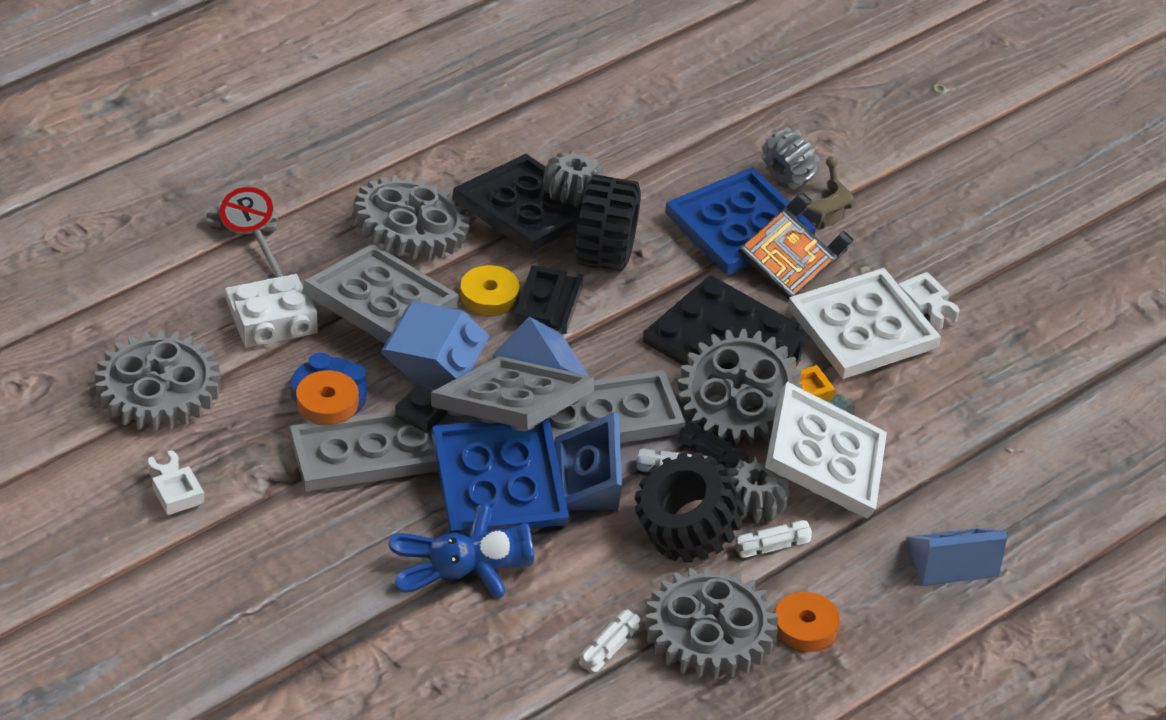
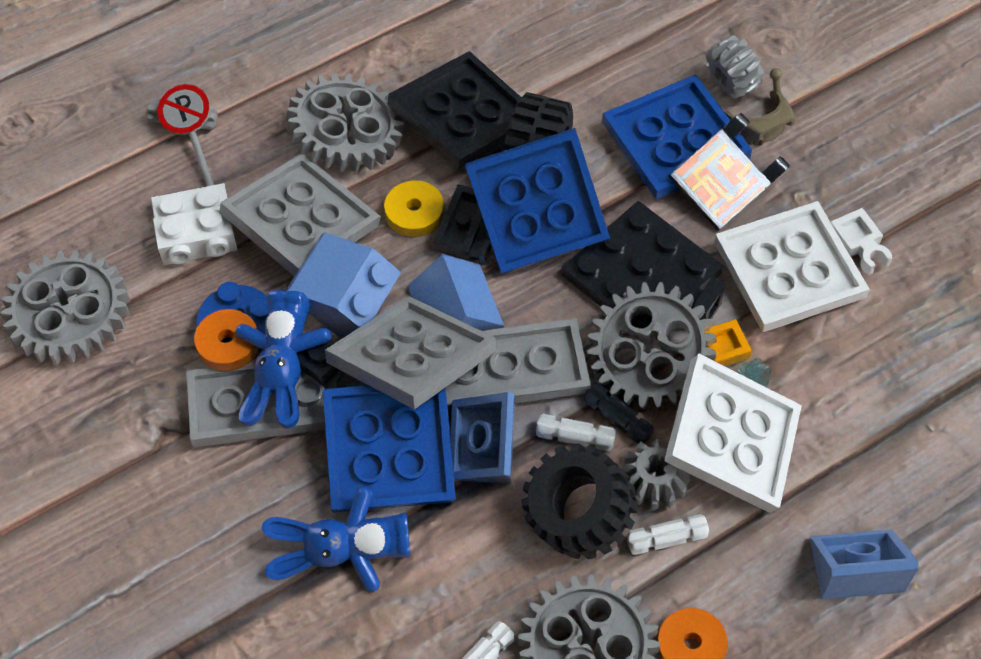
camera: 10 degrees right, 15 degrees up
(173, 486) = (63, 437): white plate -> none
(384, 409) = (278, 365): none -> blue animal
(568, 177) = (505, 84): light grey gear -> none
(616, 267) = (537, 200): none -> blue plate

